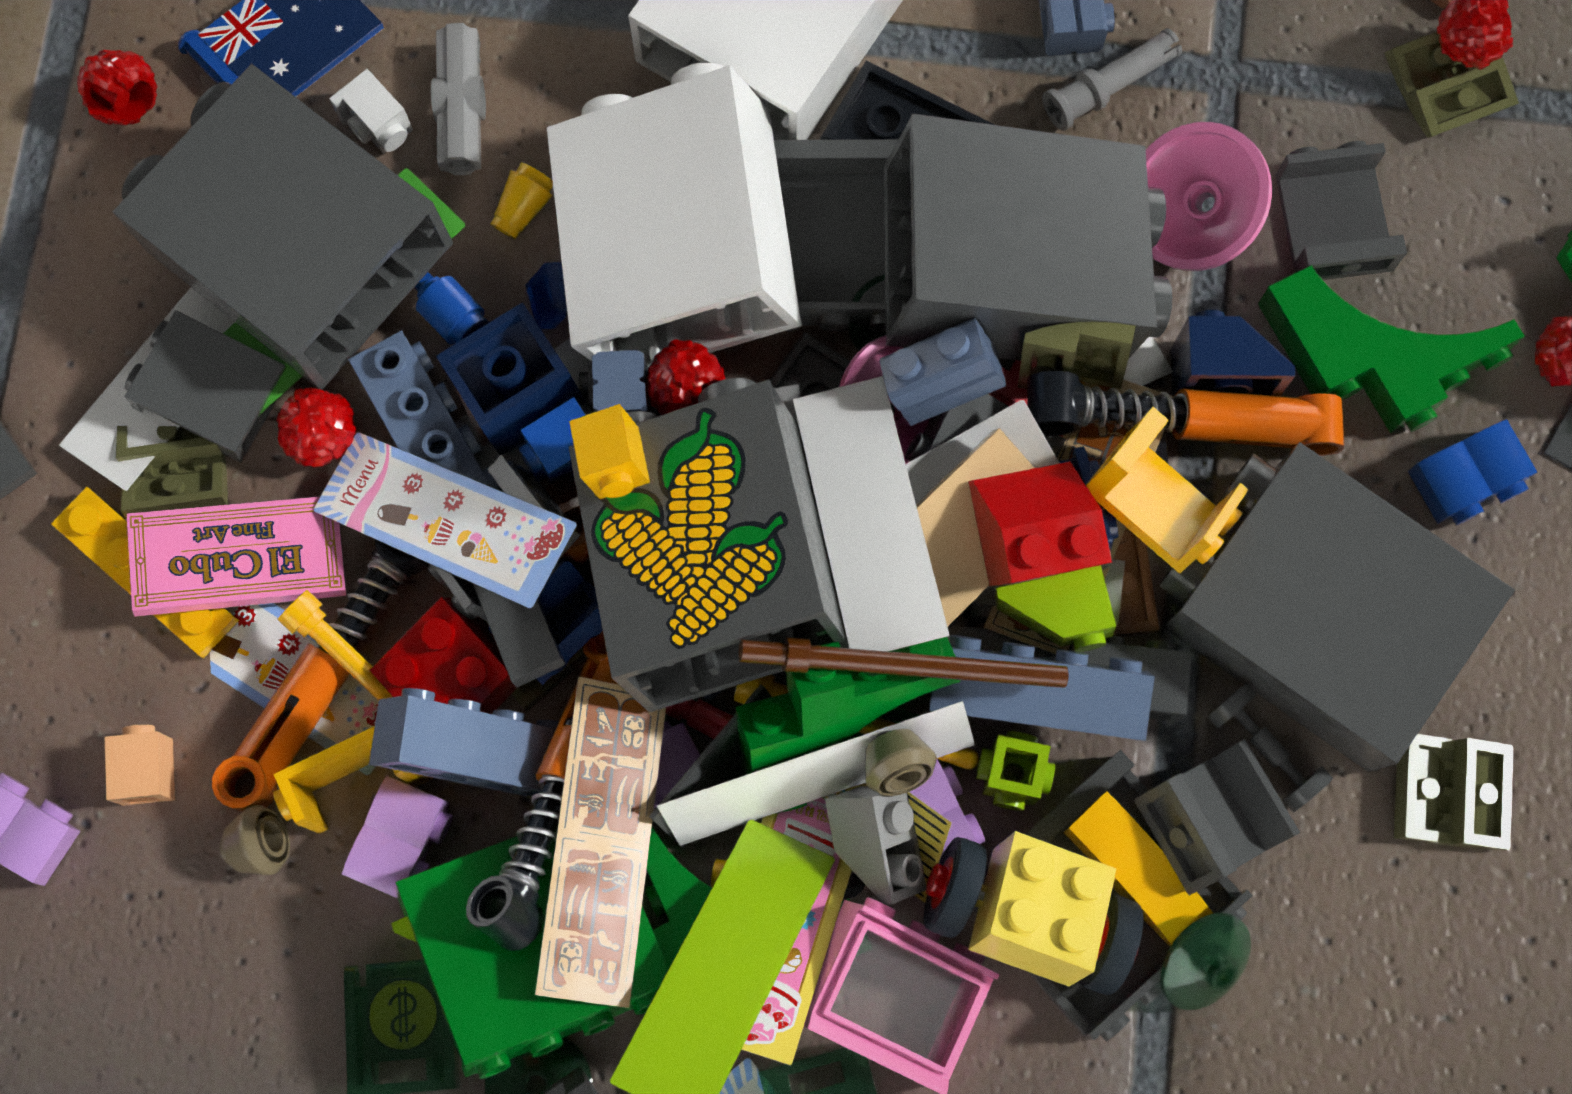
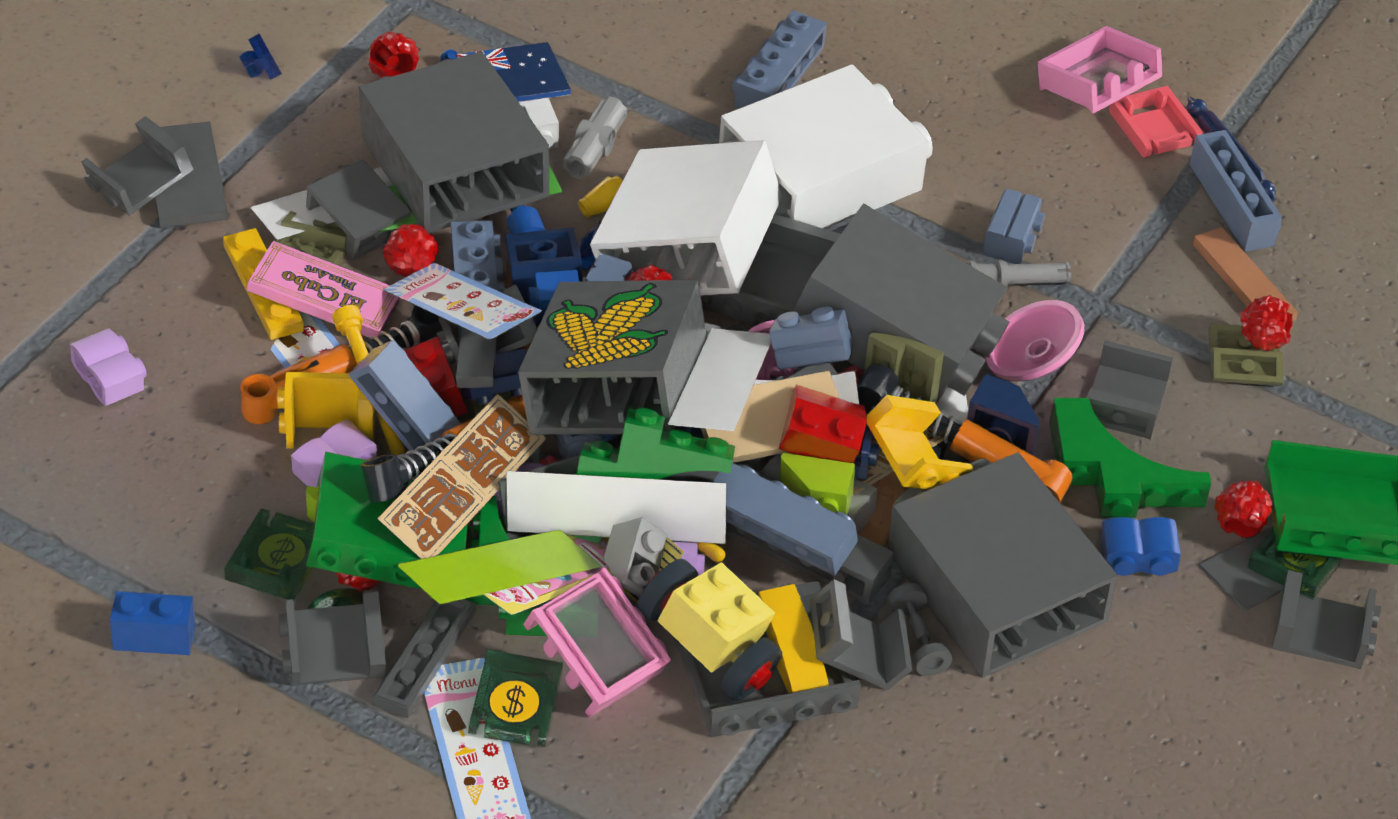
camera: 20 degrees right, 30 degrees down
(139, 766) = (201, 367): light nougat brick -> none
(256, 842) = (248, 426): dark tan cone -> none
(609, 452) = (582, 278): yellow brick -> none
(800, 655) = (636, 398): reddish brown bar -> none
(898, 762) = (668, 507): dark tan cone -> none
(1026, 754) = (749, 563): lime brick -> none
(1205, 961) = (793, 706): clear green dish -> none
(1455, 793) = (1032, 704): olive slope -> none

